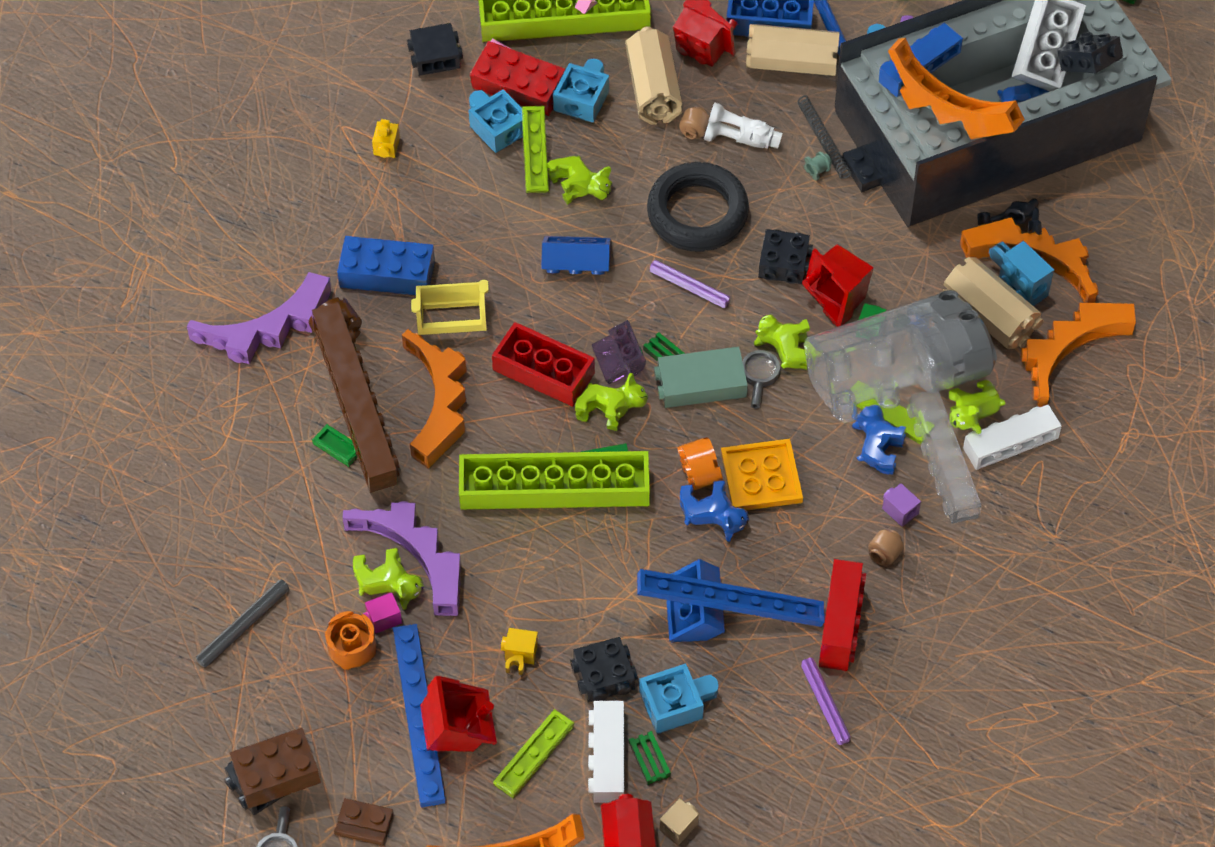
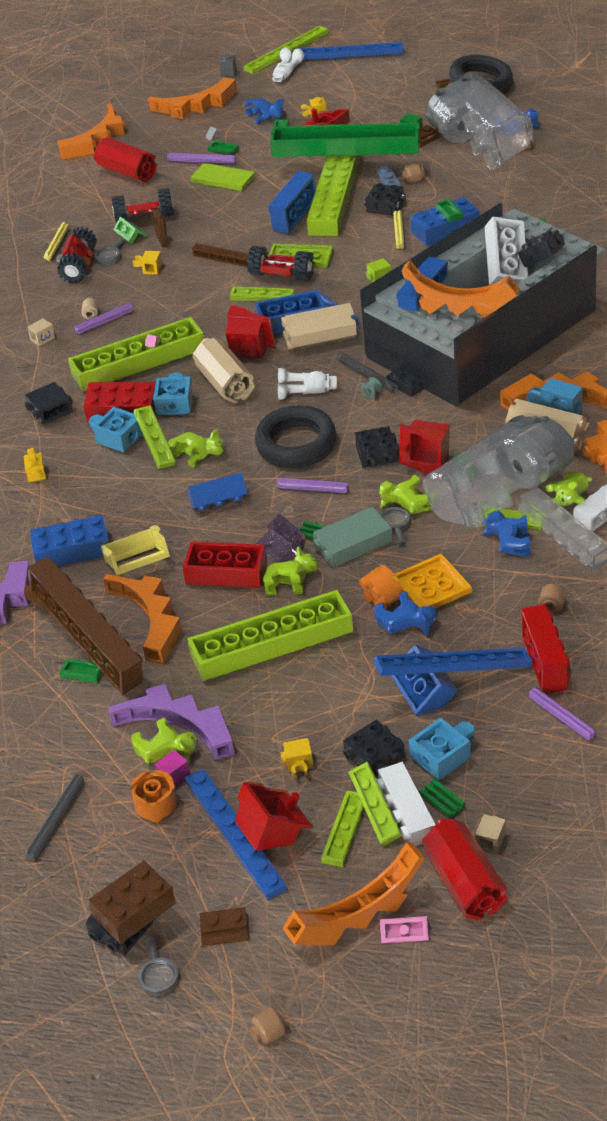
camera: 15 degrees left, 15 degrees down
(574, 739) = (375, 804): none -> lime tile
(694, 122) = (267, 390): medium nougat head -> none
(901, 504) = (548, 568): medium lavender brick -> none
(1019, 212) = (536, 369): black piece -> none

